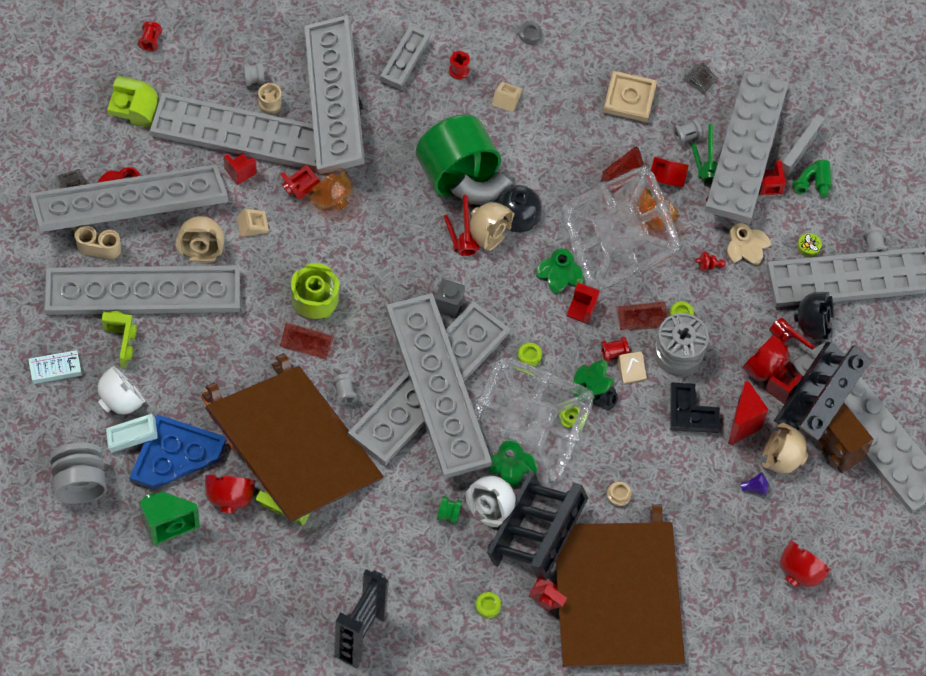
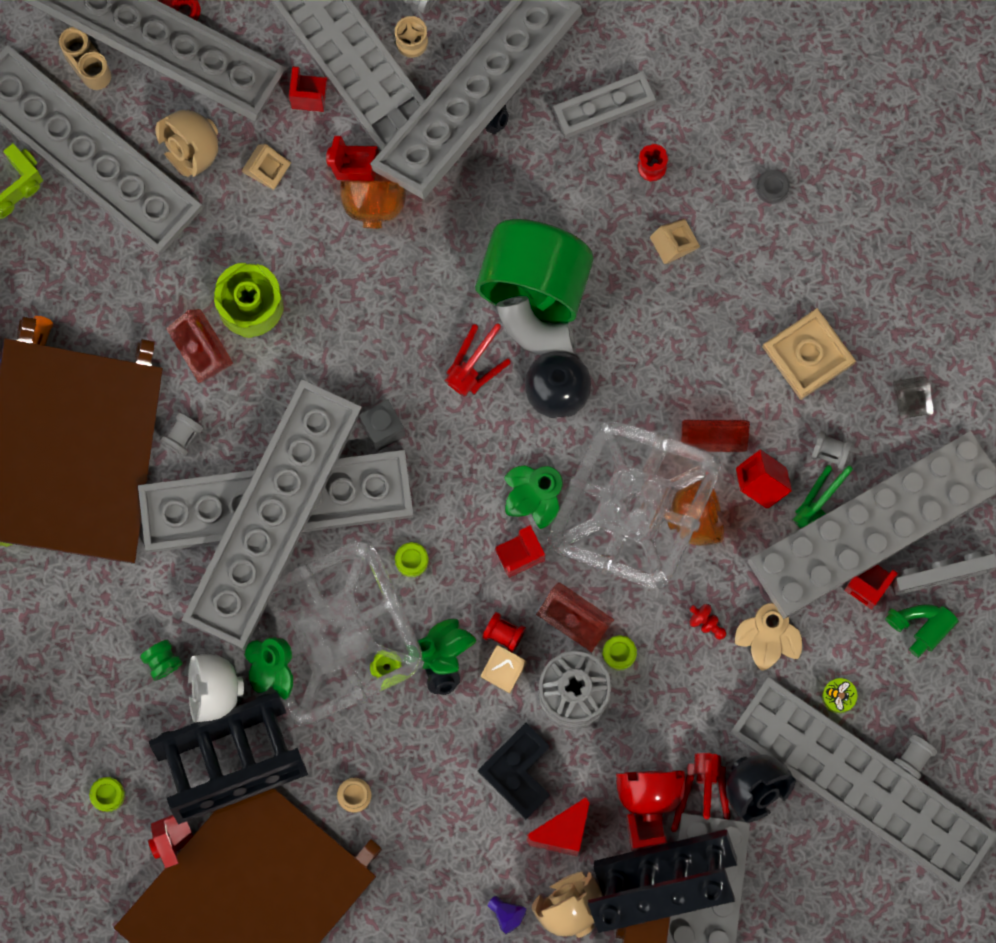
camera: 50 degrees right, 15 degrees up
(488, 224) = (501, 378): tan cylinder -> none

